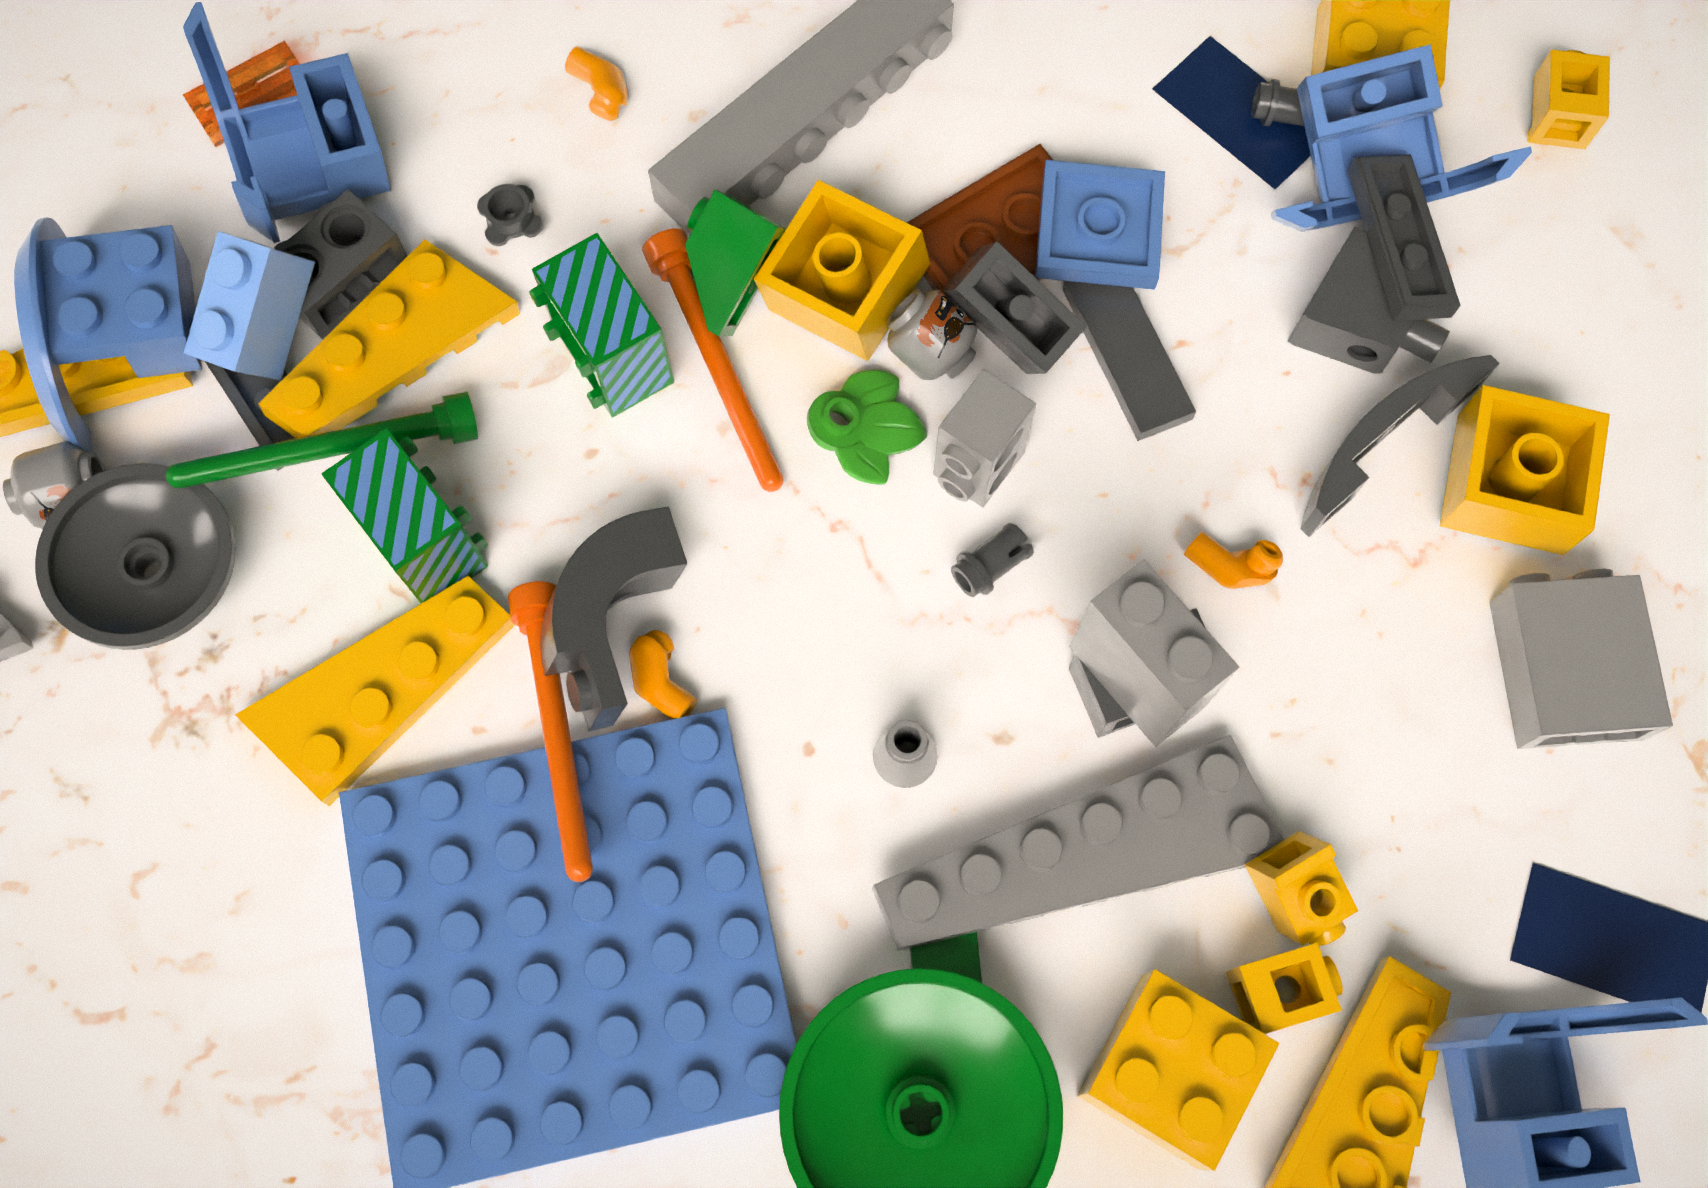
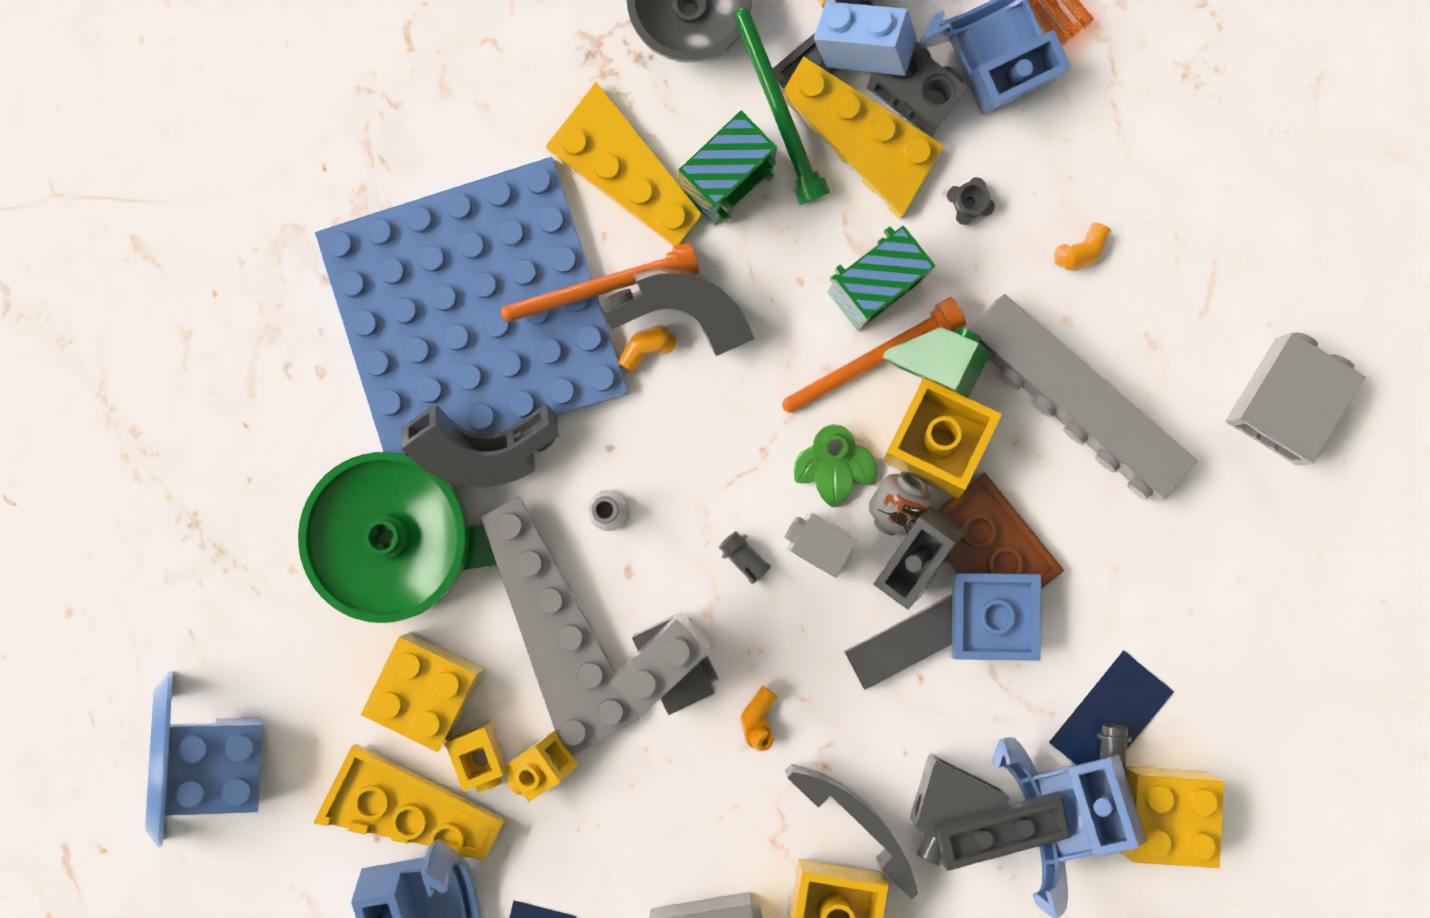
camera: 85 degrees right, 15 degrees up
(805, 940) = (475, 458): none -> dark grey arch

